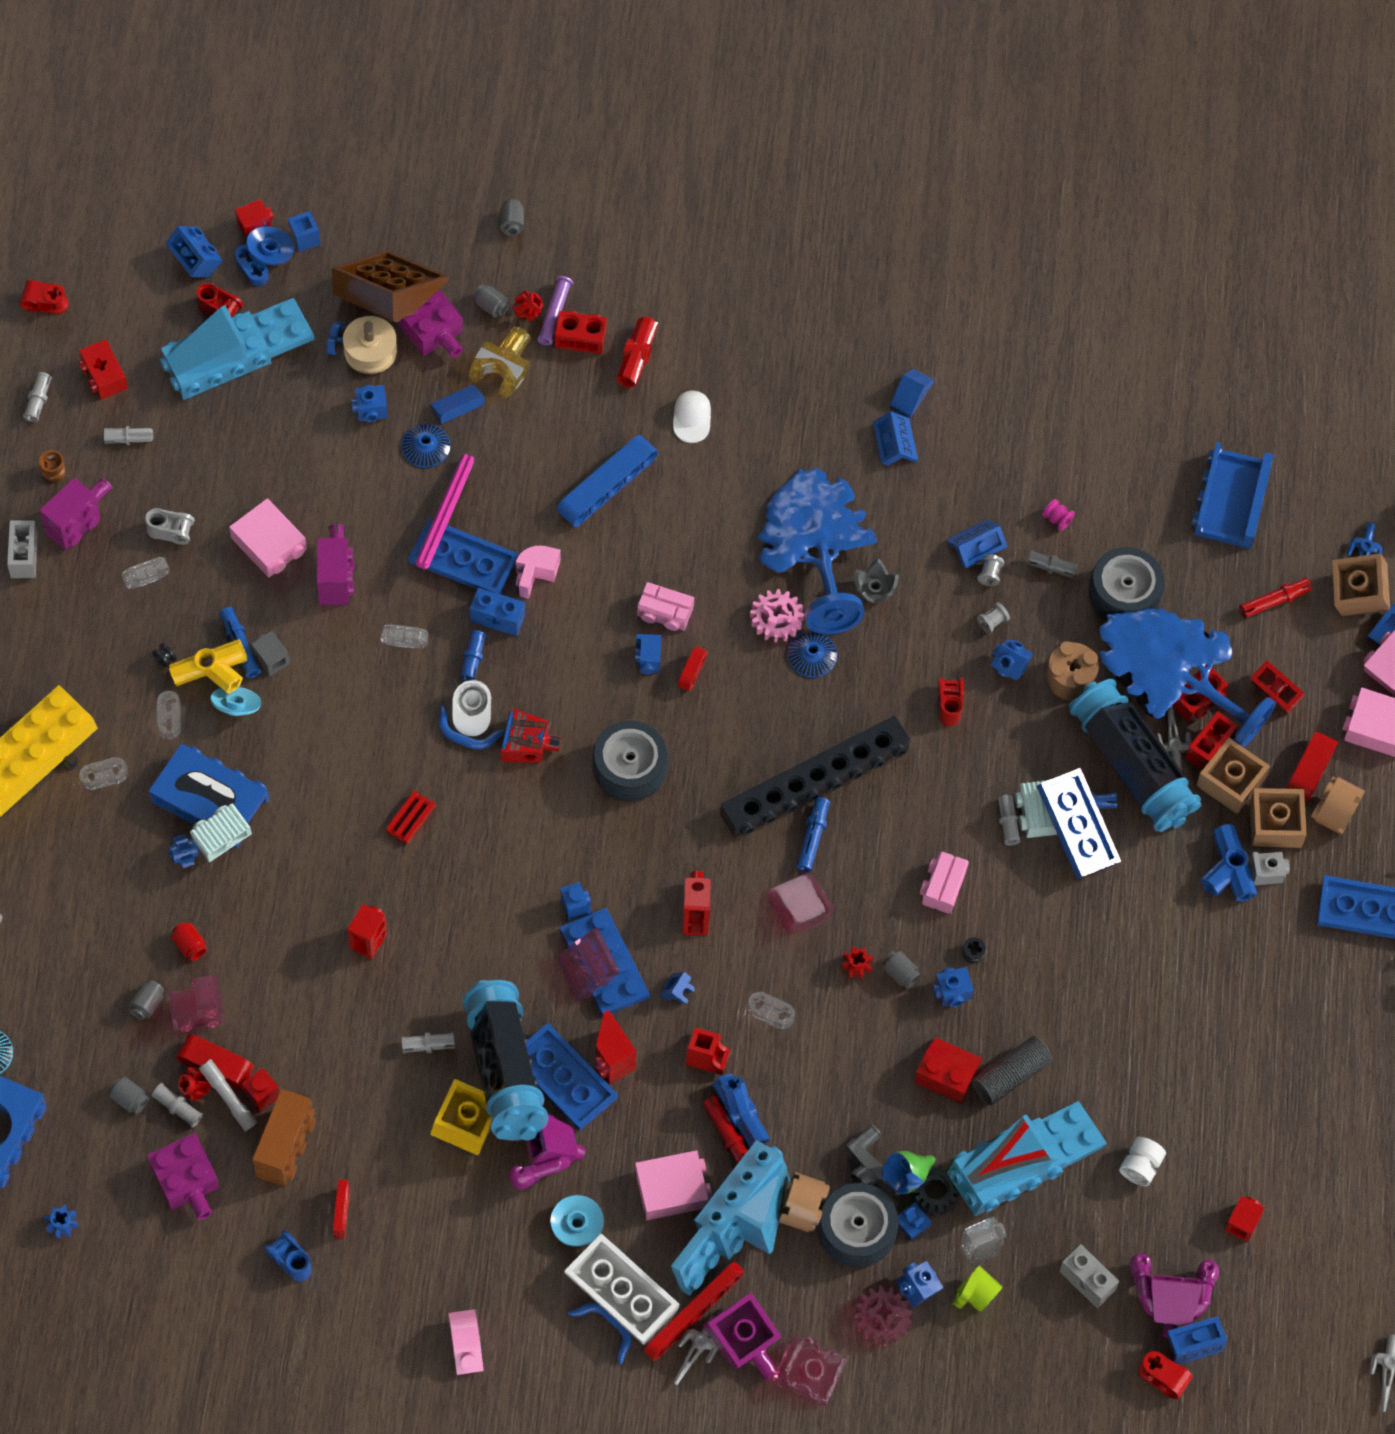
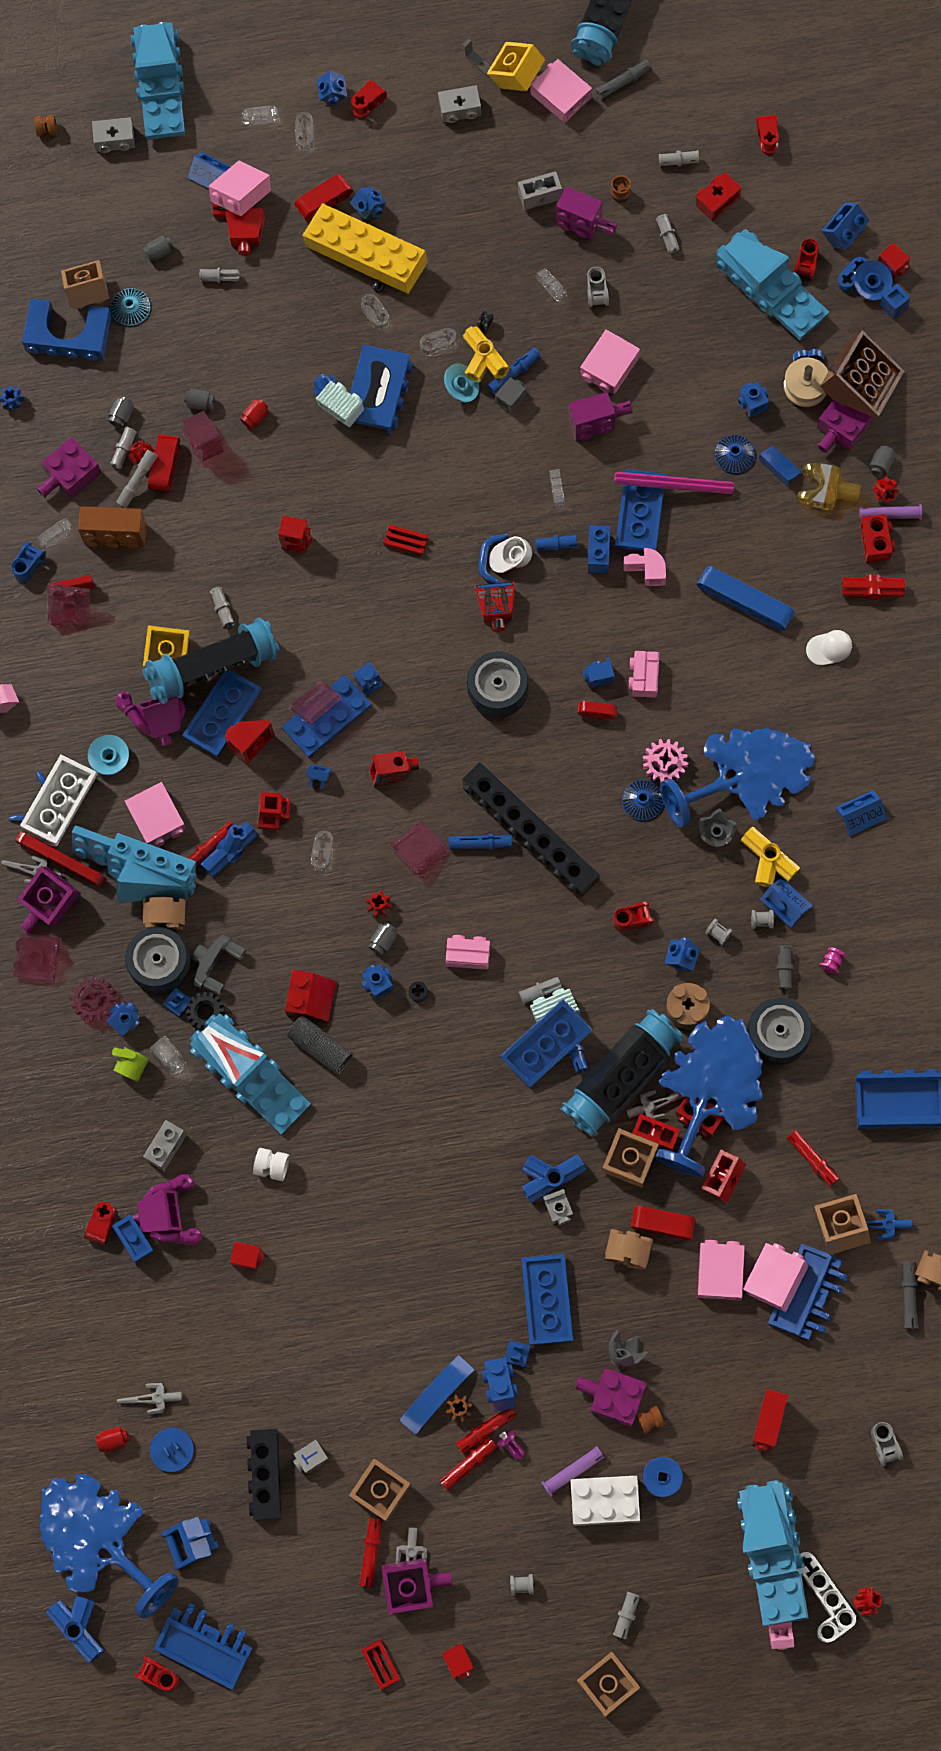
camera: 85 degrees right, 10 degrees up
(261, 1090) = (149, 501): red brick -> none
(264, 1213) = (55, 533): none -> clear beam
(367, 1220) = (67, 605): none -> clear pink slope
(906, 1170) = (206, 983): blue hat -> none
(911, 392) = (913, 813): blue slope -> none
(933, 543) = (768, 867): none -> yellow piece
(1277, 817) = (603, 1203): medium nougat brick -> none

